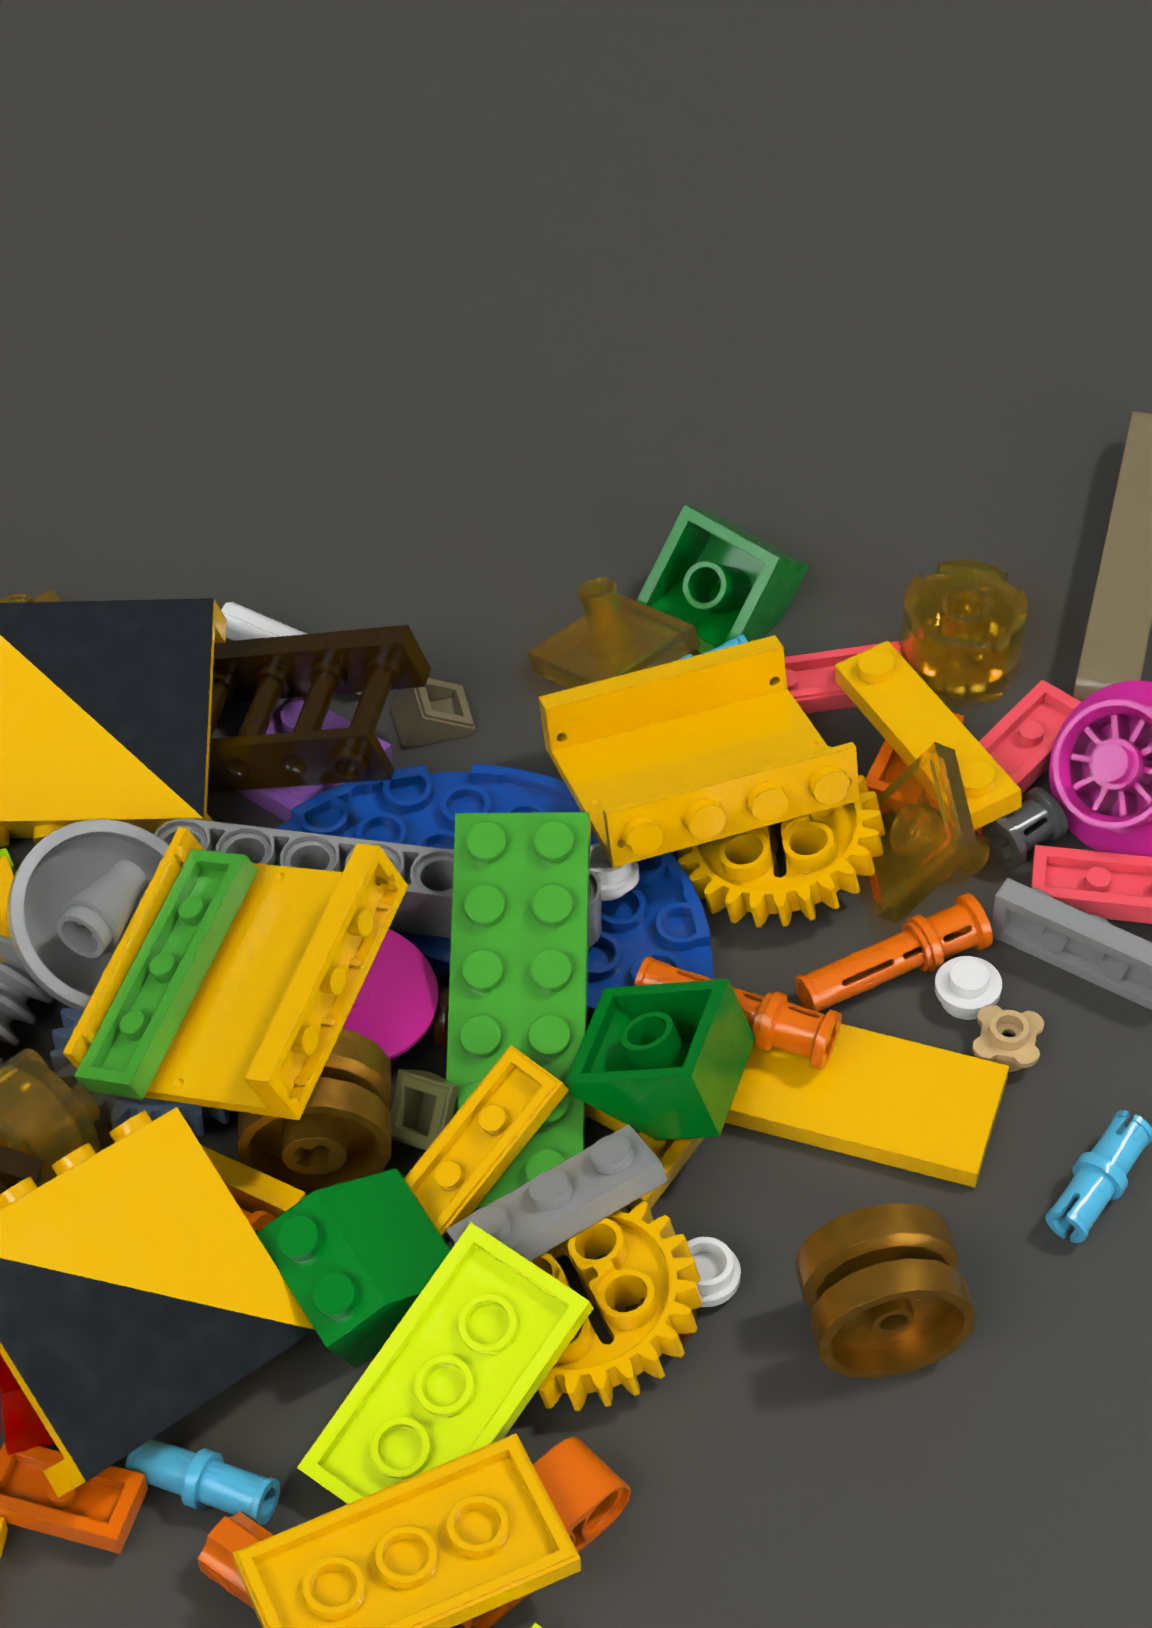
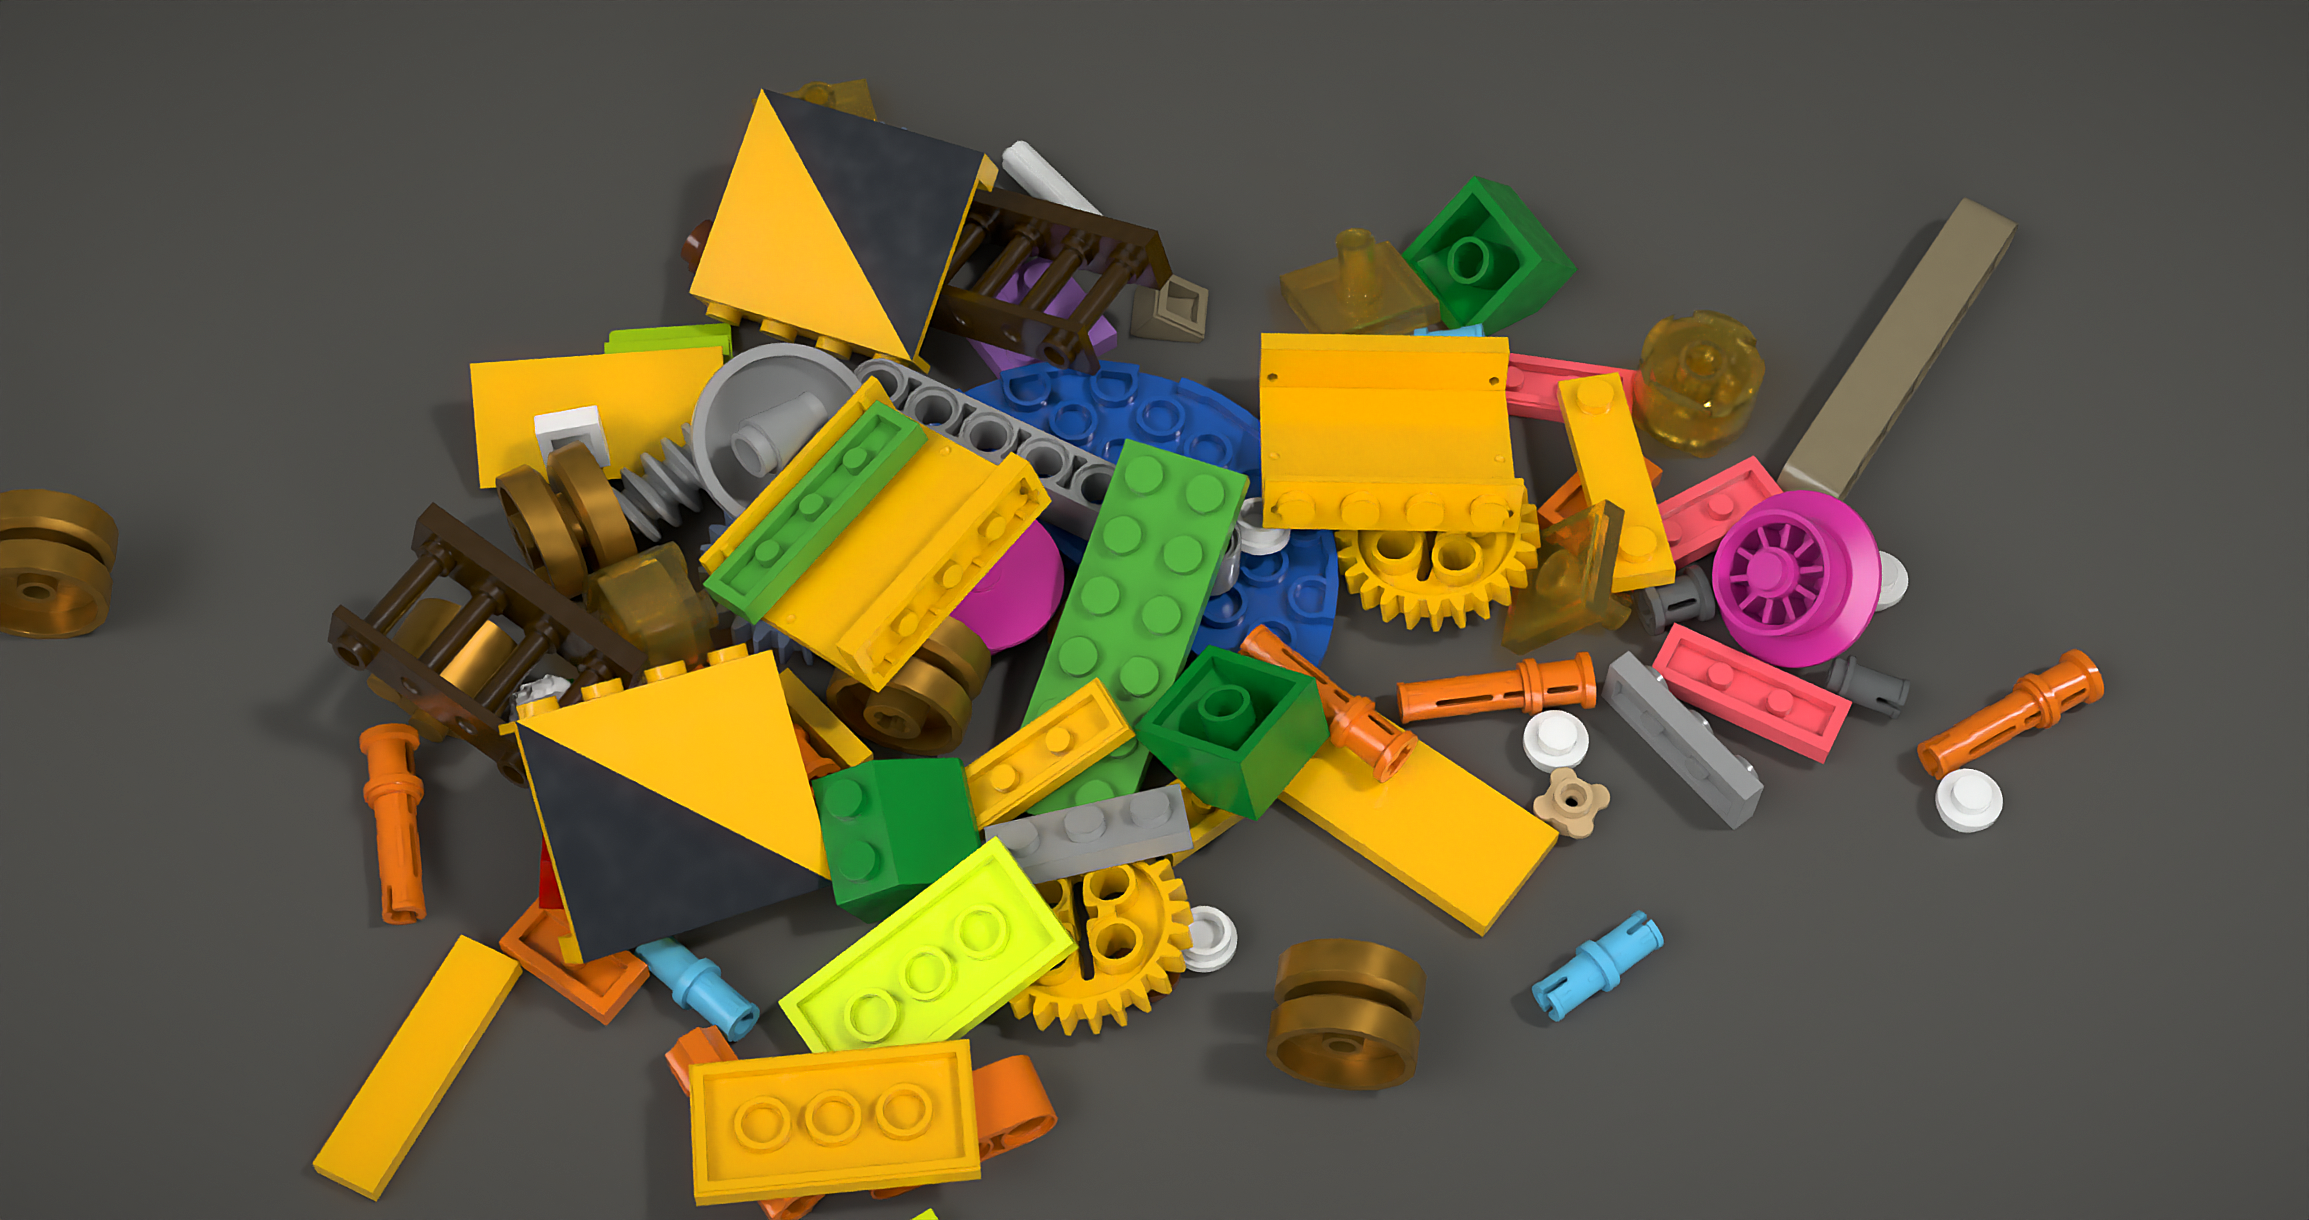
camera: 15 degrees right, 10 degrees up
(421, 1107) = (1005, 703): olive slope -> none

